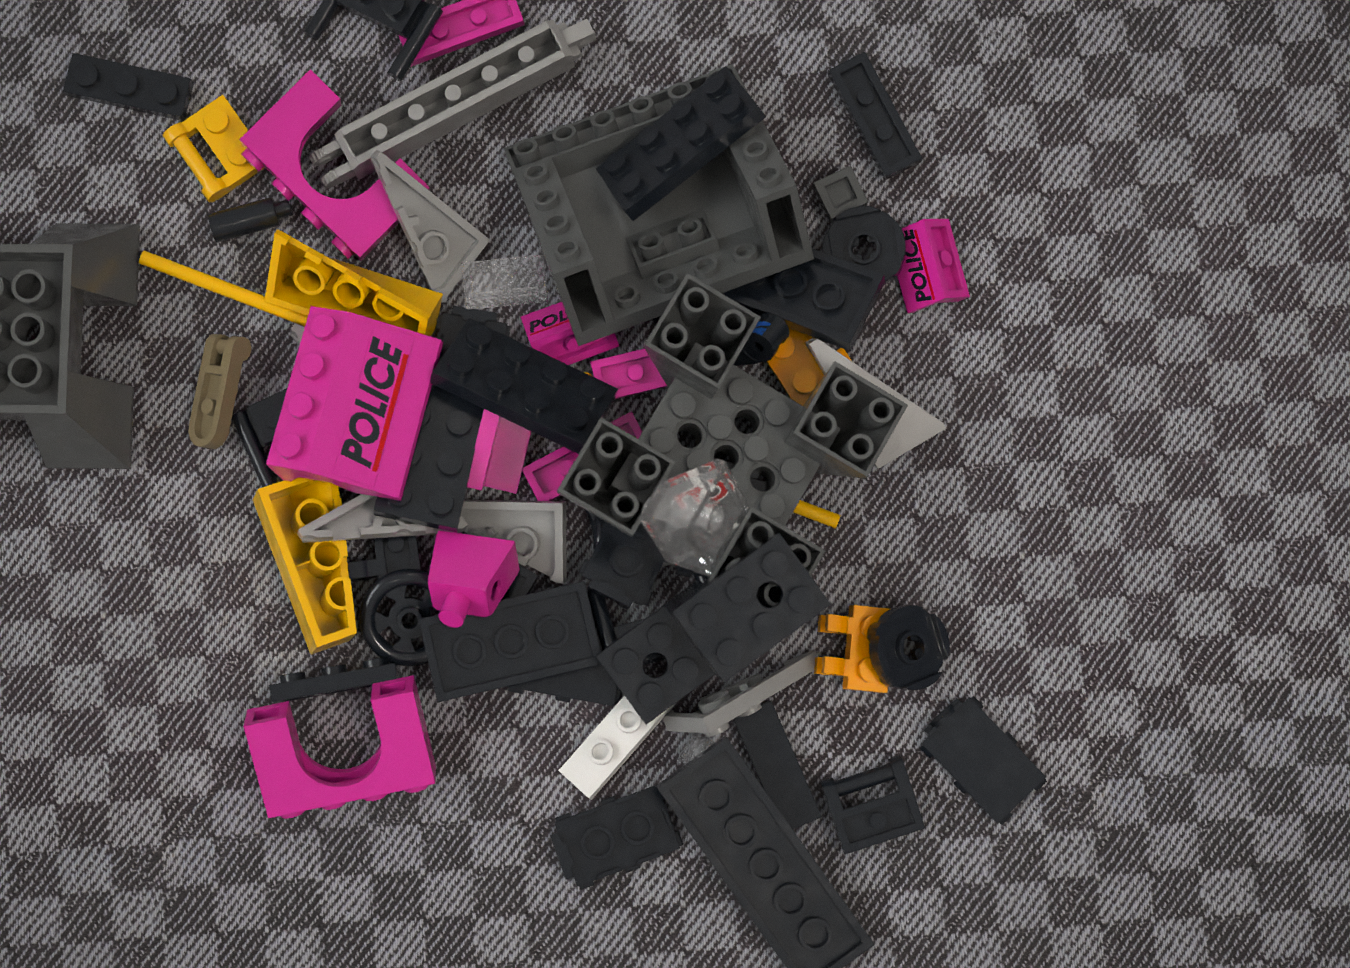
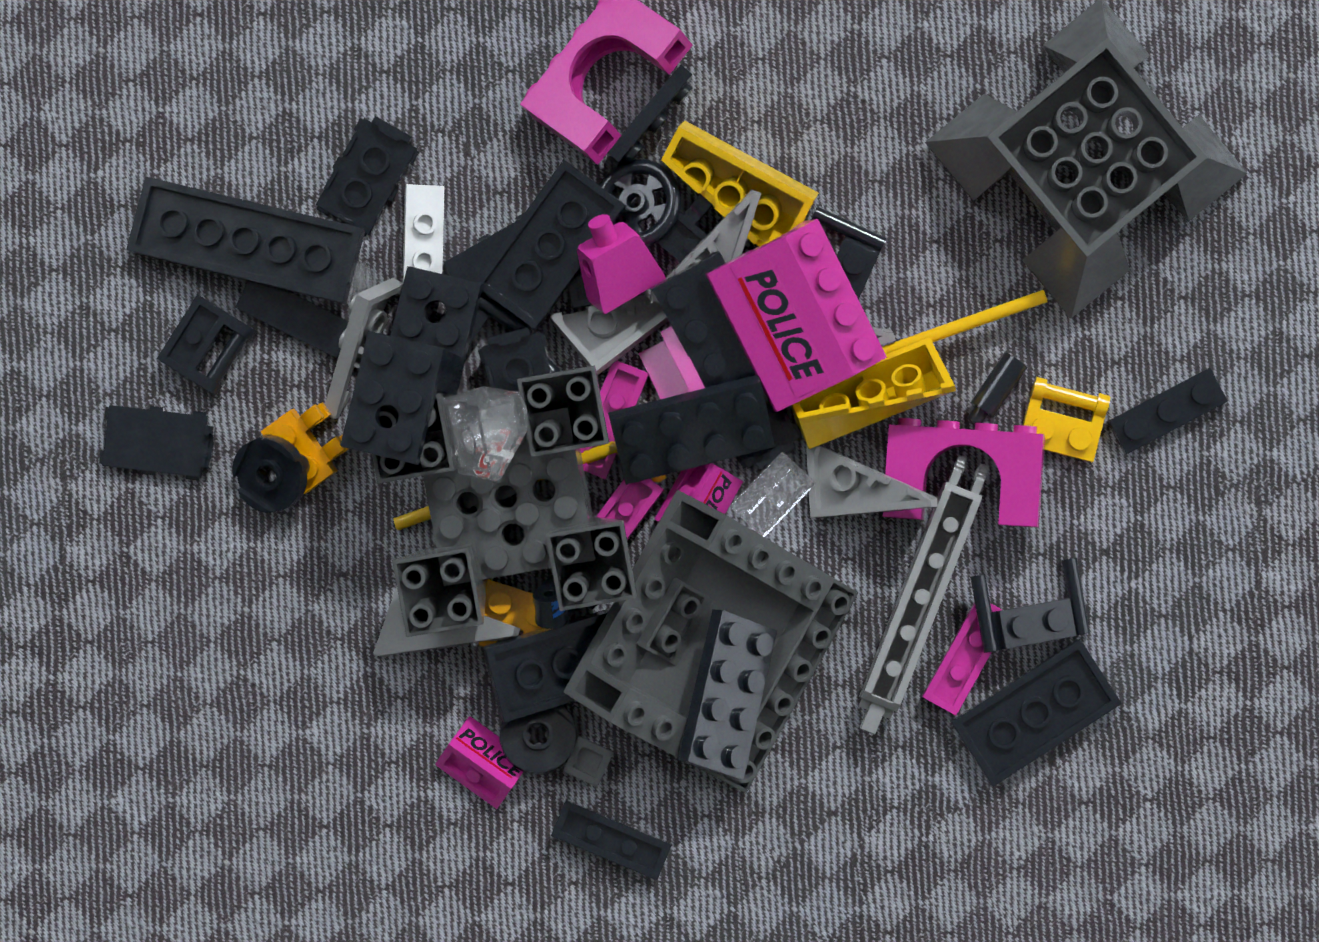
camera: 135 degrees right, 5 degrees up
(217, 389) = (911, 248): dark tan plate -> none

